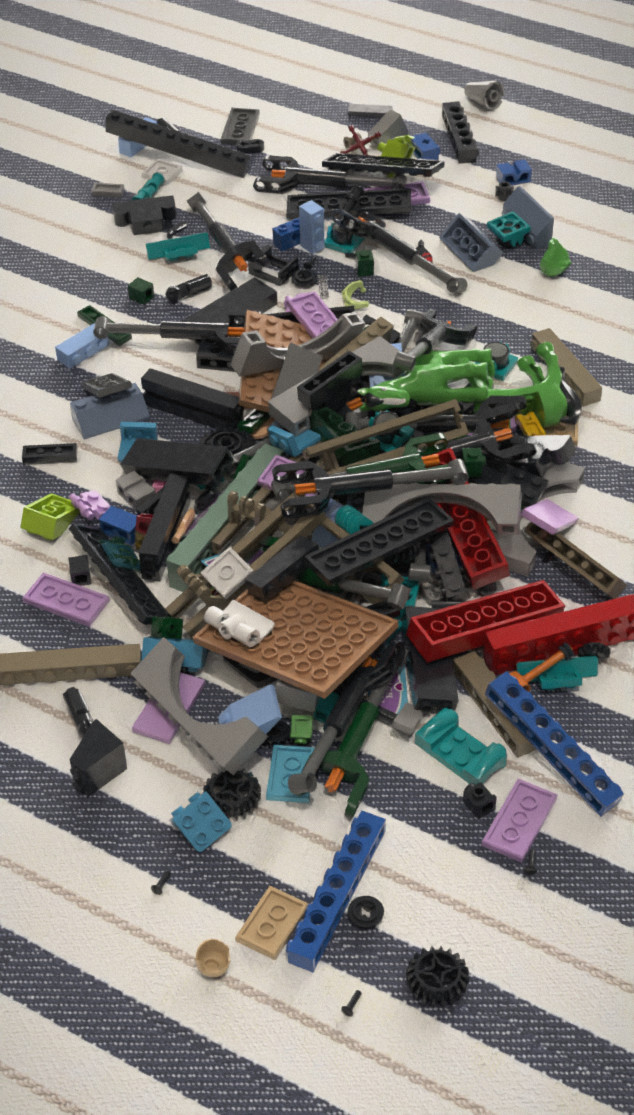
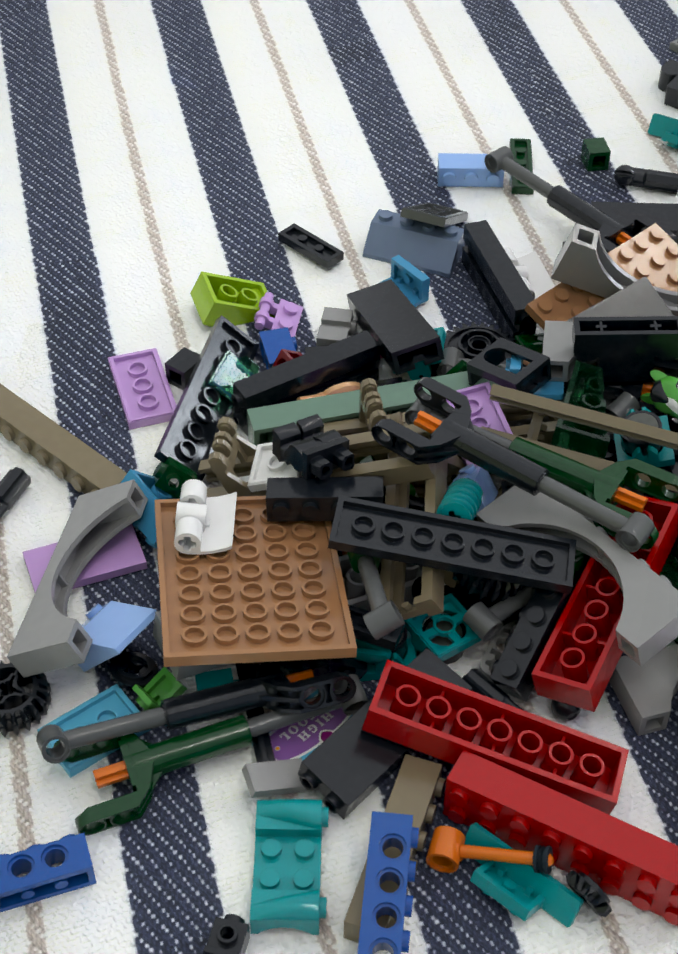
camera: 45 degrees right, 0 degrees up
(255, 549) = (311, 448): none -> black hips
(298, 443) = (527, 380): none -> black panel

